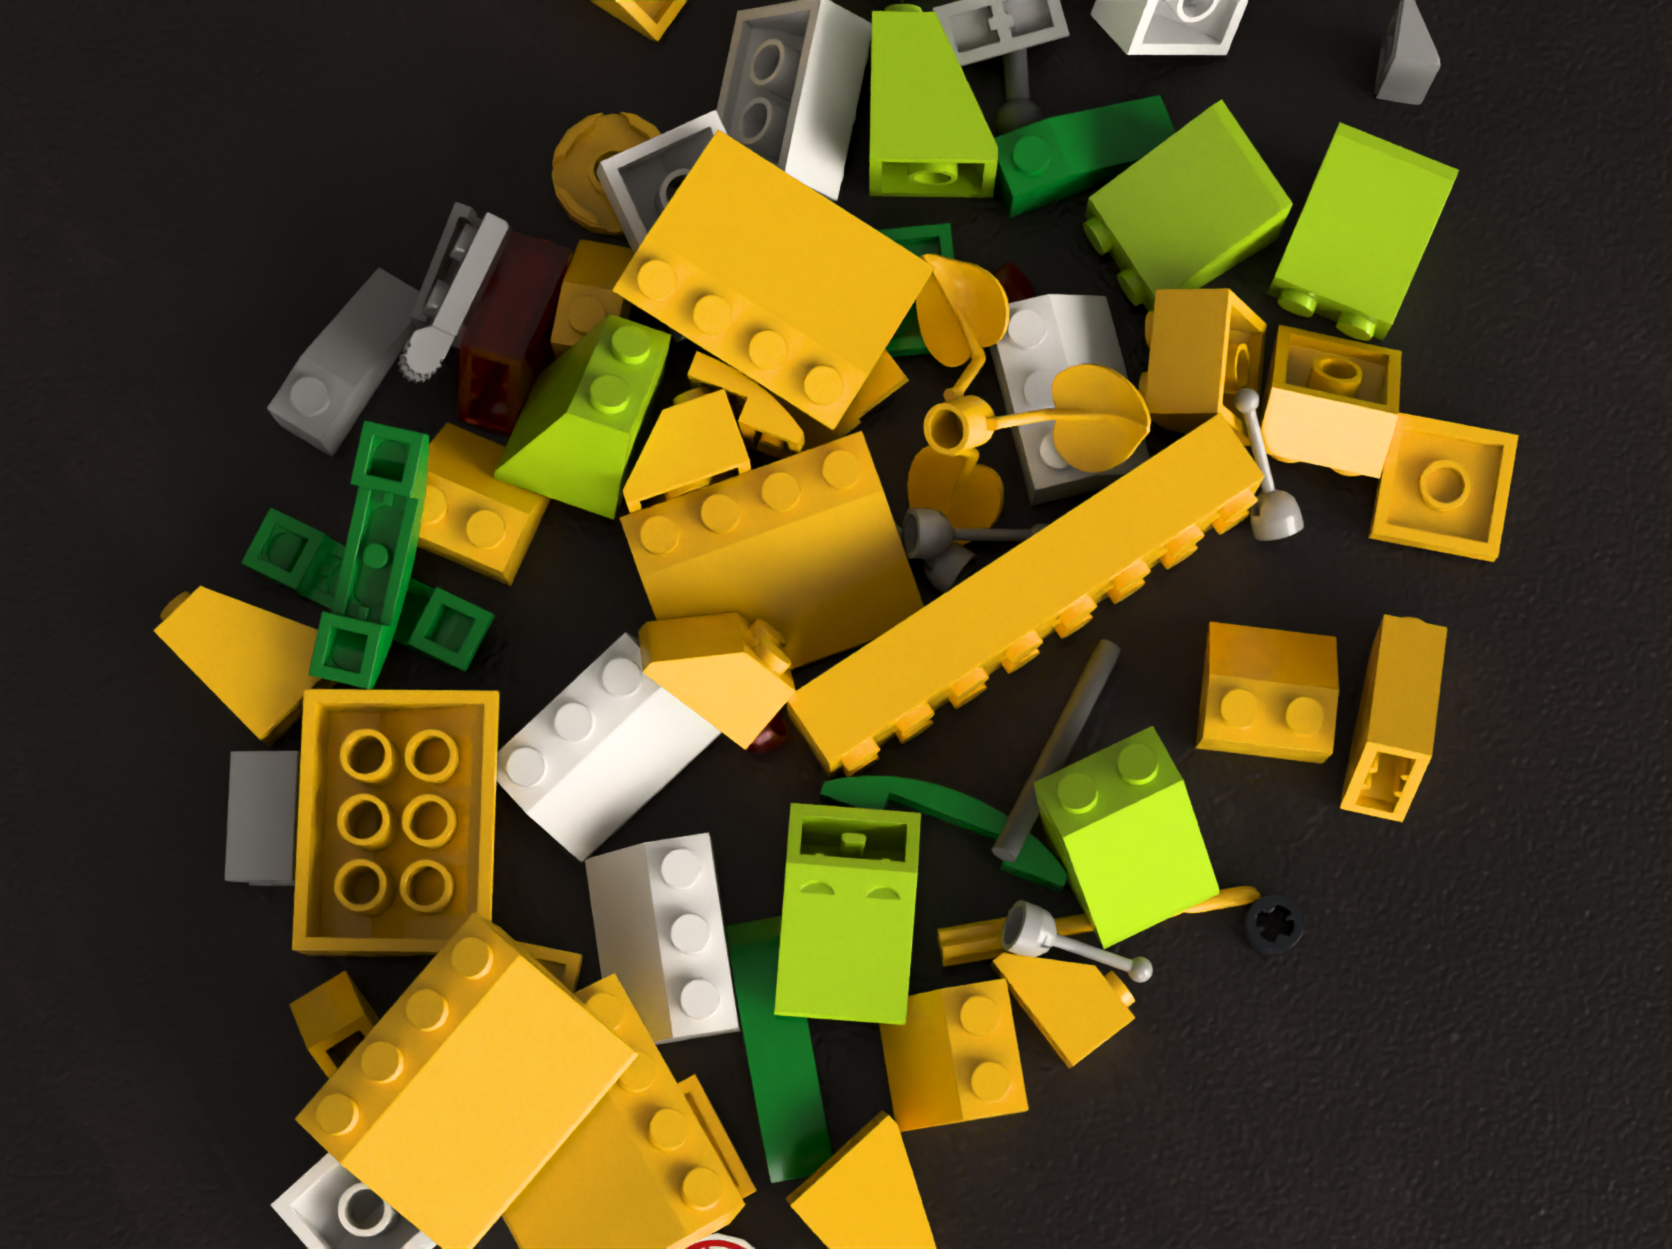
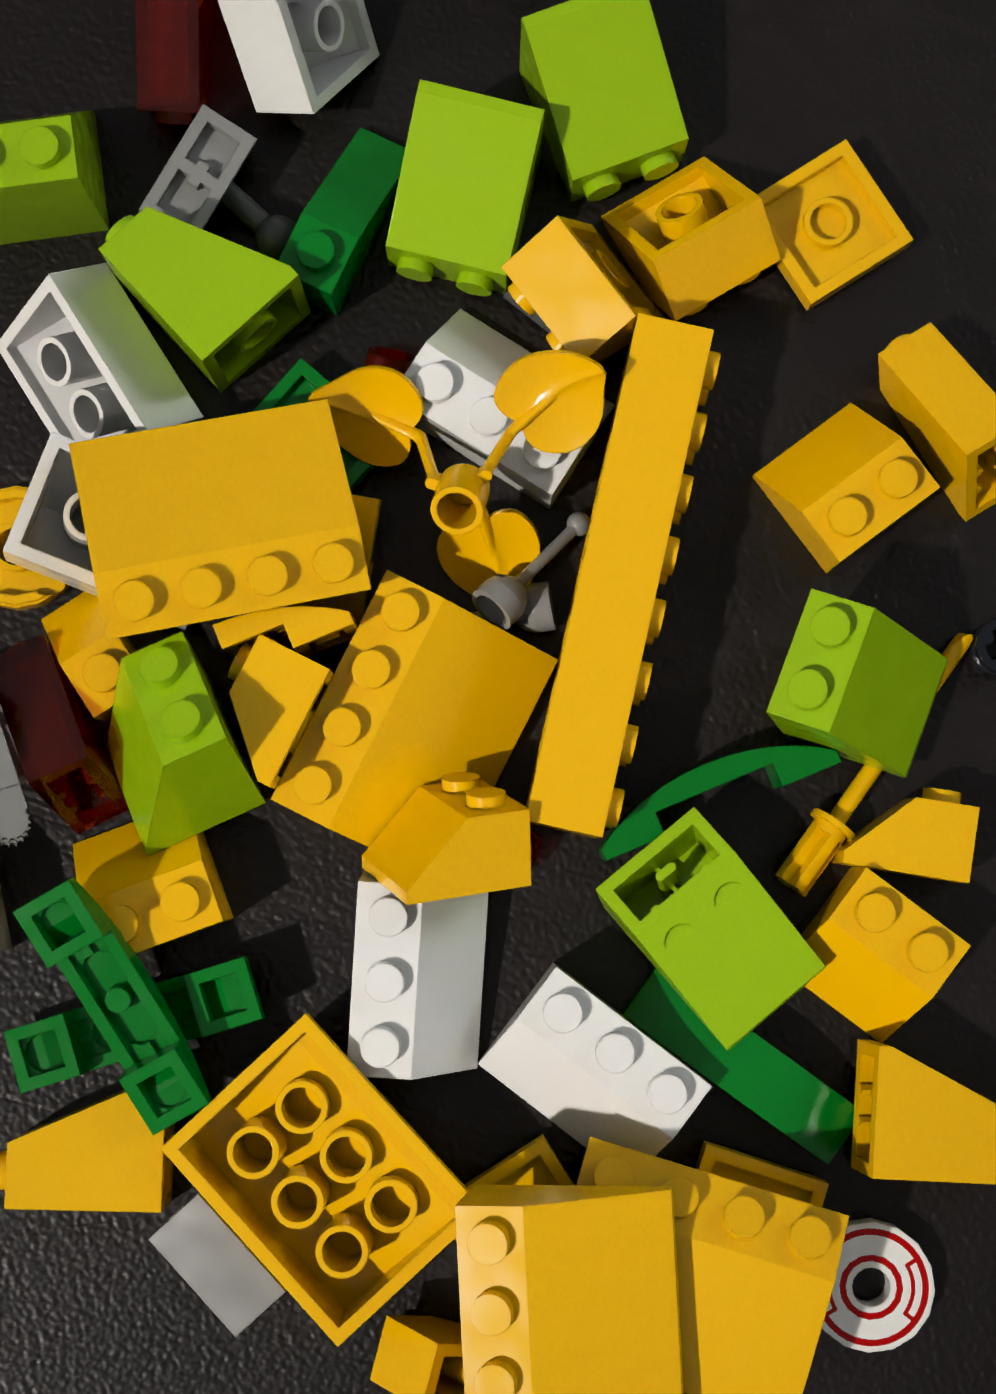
camera: 50 degrees left, 5 degrees up
(1033, 932) = (851, 815): light grey hinge -> none
(1057, 748) = (742, 670): dark grey bar -> none
(1276, 511) = (736, 349): light grey hinge -> none

